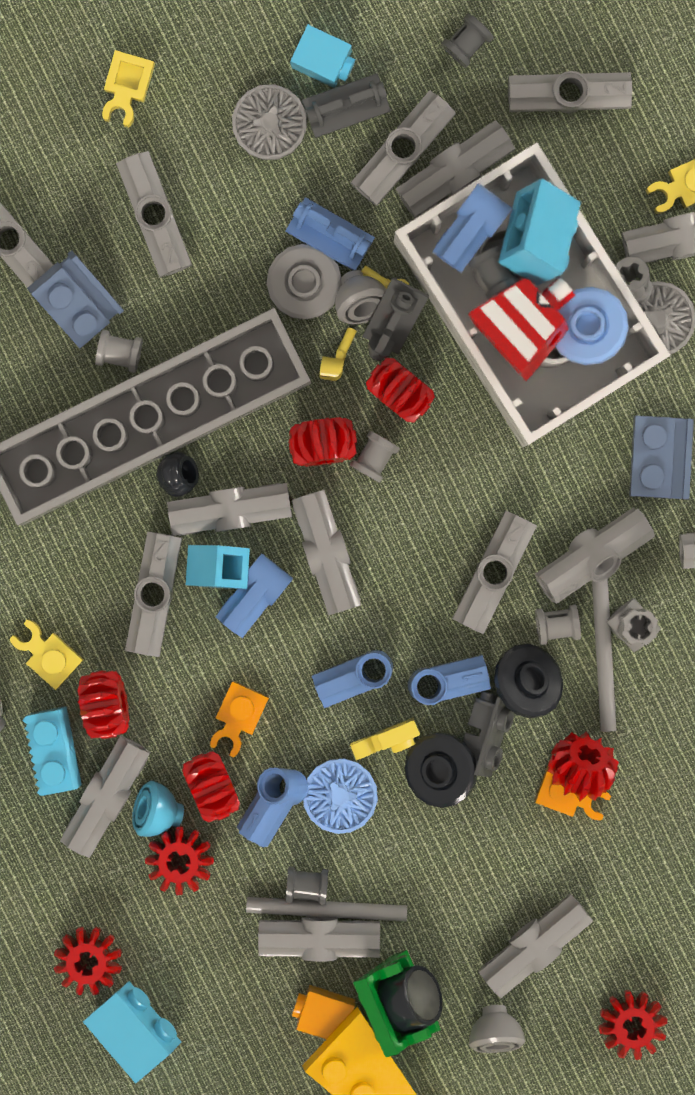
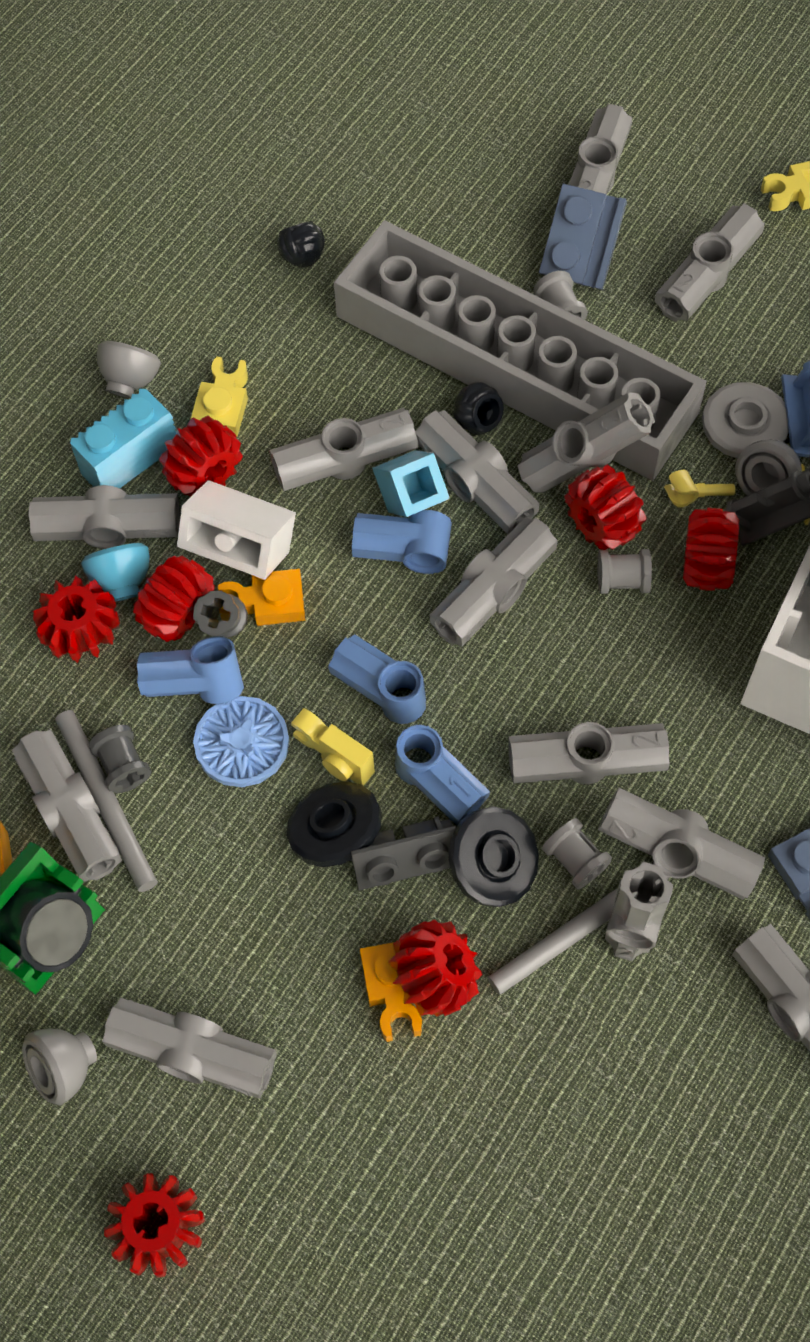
camera: 60 degrees right, 25 degrees down
(178, 711) = (235, 529): none -> white brick
(239, 771) = (229, 602): none -> dark grey bush
(273, 430) = (586, 442): none -> light grey piece

